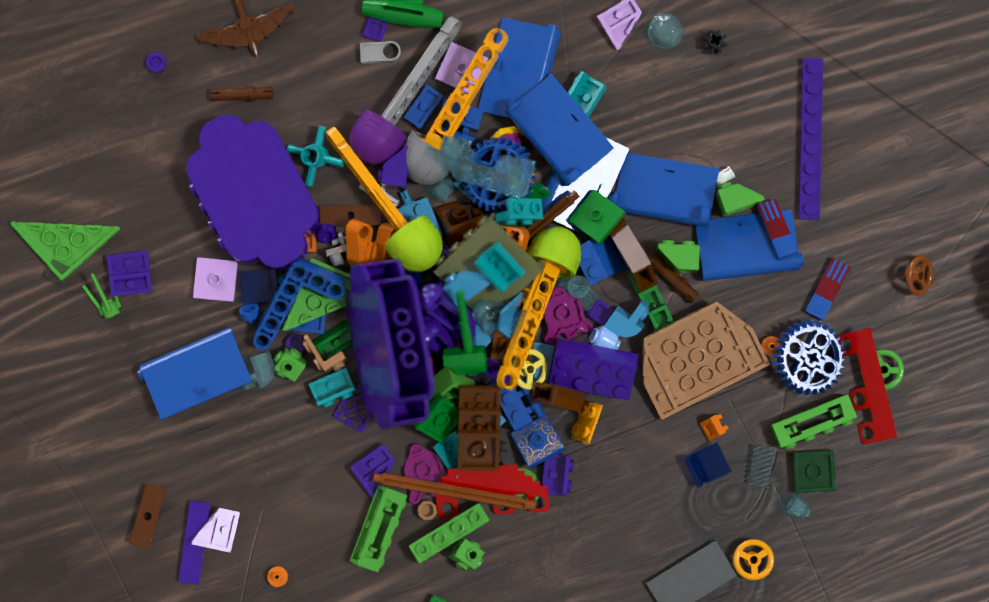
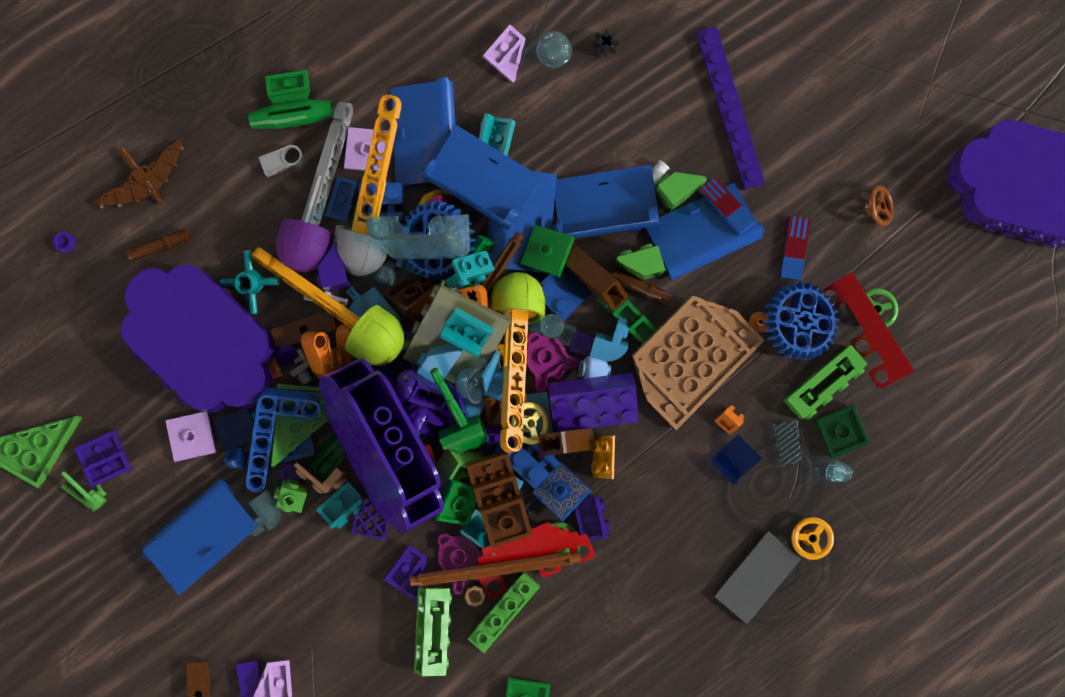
camera: 20 degrees left, 0 degrees up
(375, 30) = (269, 139): dark purple tile -> none
(467, 555) = (528, 628): bright green brick -> none

